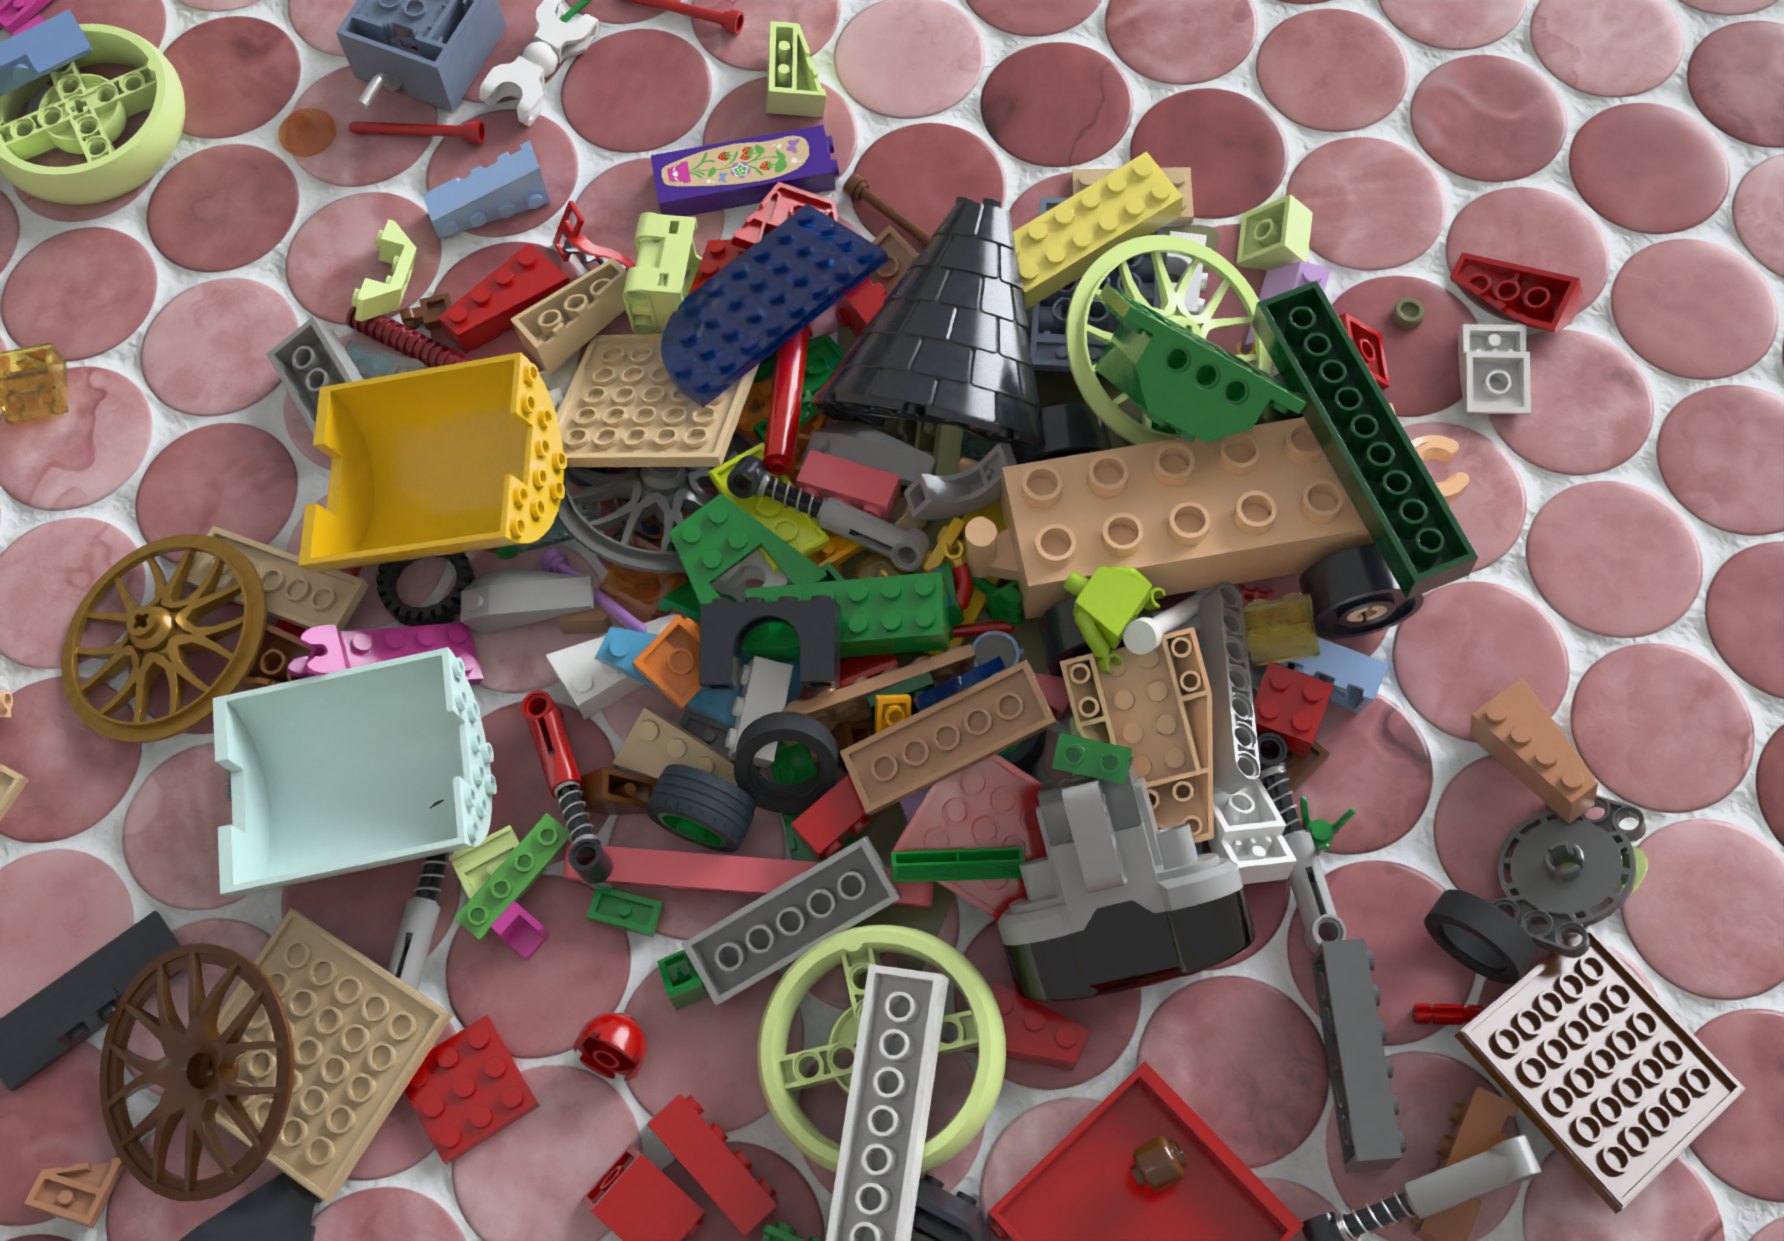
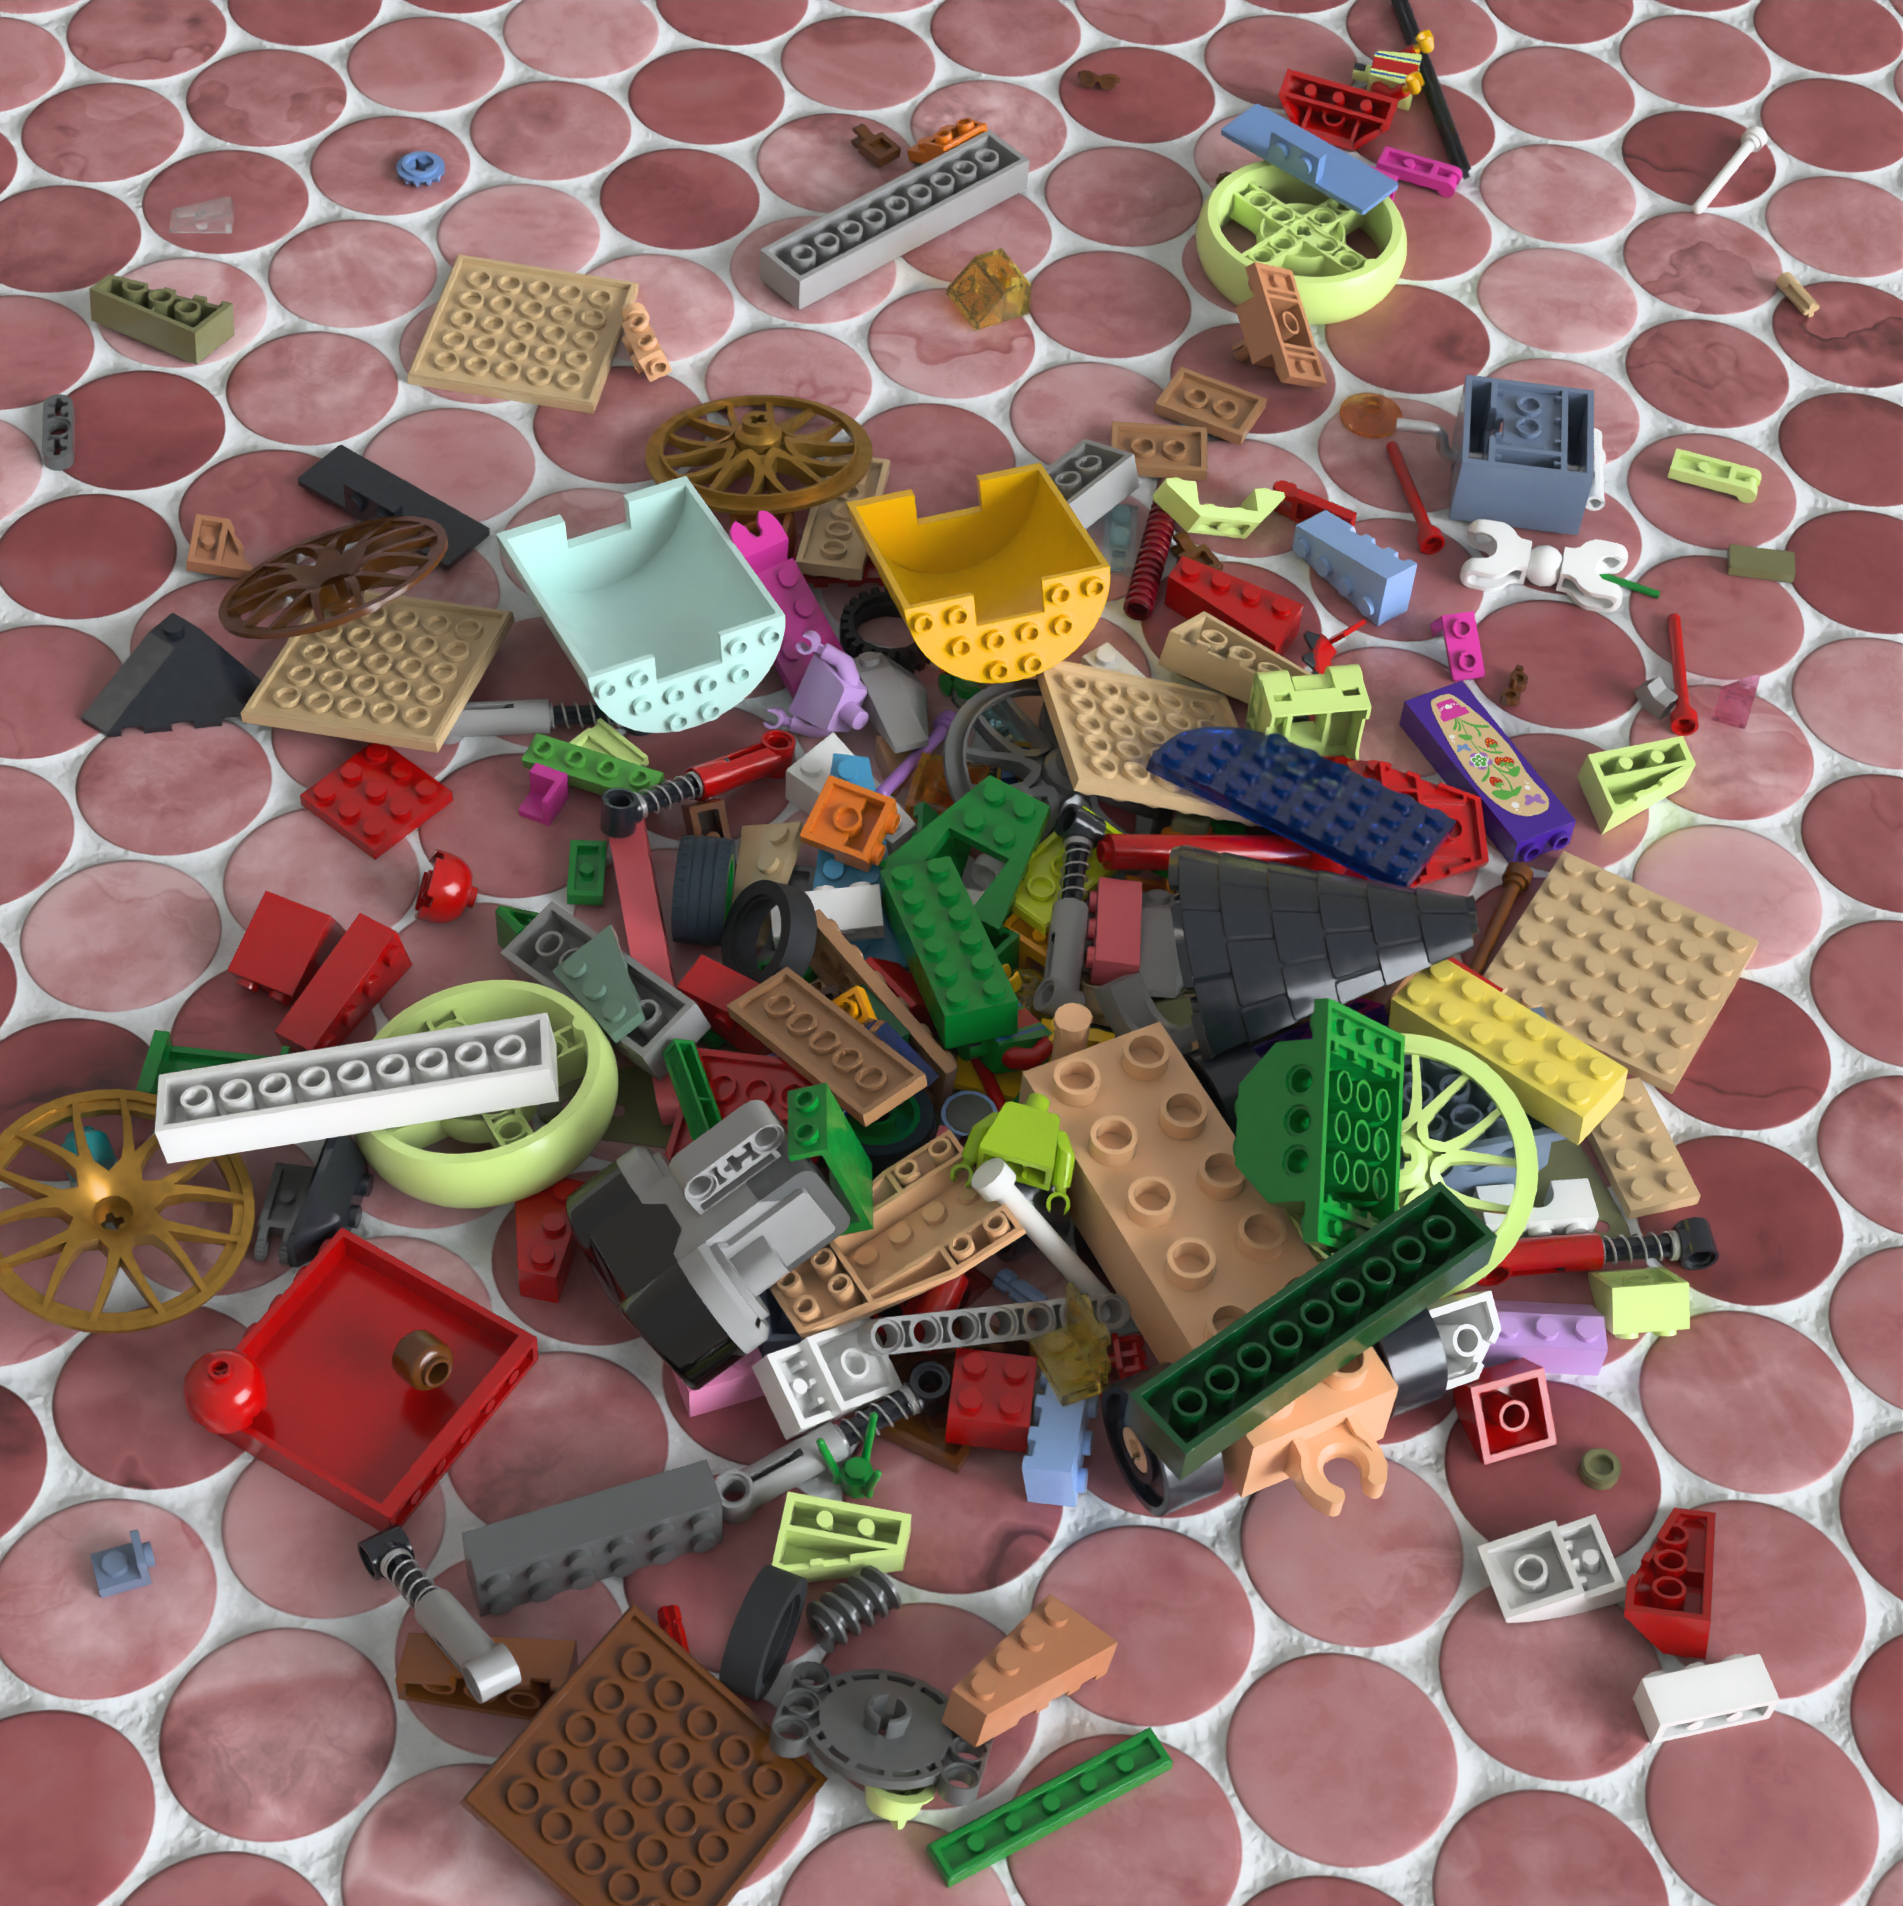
camera: 65 degrees right, 15 degrees down
(198, 162) = (1278, 328): none -> nougat brick
(250, 248) = (1210, 404): none -> medium nougat plate
(287, 301) = (1163, 449): none -> medium nougat plate
(408, 207) = (1301, 505): none -> red hinge
(501, 651) = (827, 695): none -> lavender torso
(601, 143) = (1461, 645): none -> dark pink bracket
(650, 123) = (1517, 684): none -> reddish brown piece
(702, 32) = (1656, 697): none -> light grey piece
(728, 624) = (908, 905): black arch -> none
(806, 916) = (602, 985): none -> sand green wing
(962, 138) = (1621, 968): none -> tan plate
(1233, 192) = (1687, 1243): none -> piece
(1386, 863) = (839, 1538): none -> yellowish green wedge
(1443, 863) = (850, 1604): none -> dark grey piece
(1612, 309) = (1705, 1697): none -> white brick
(1630, 768) = (1048, 1807): none -> green tile

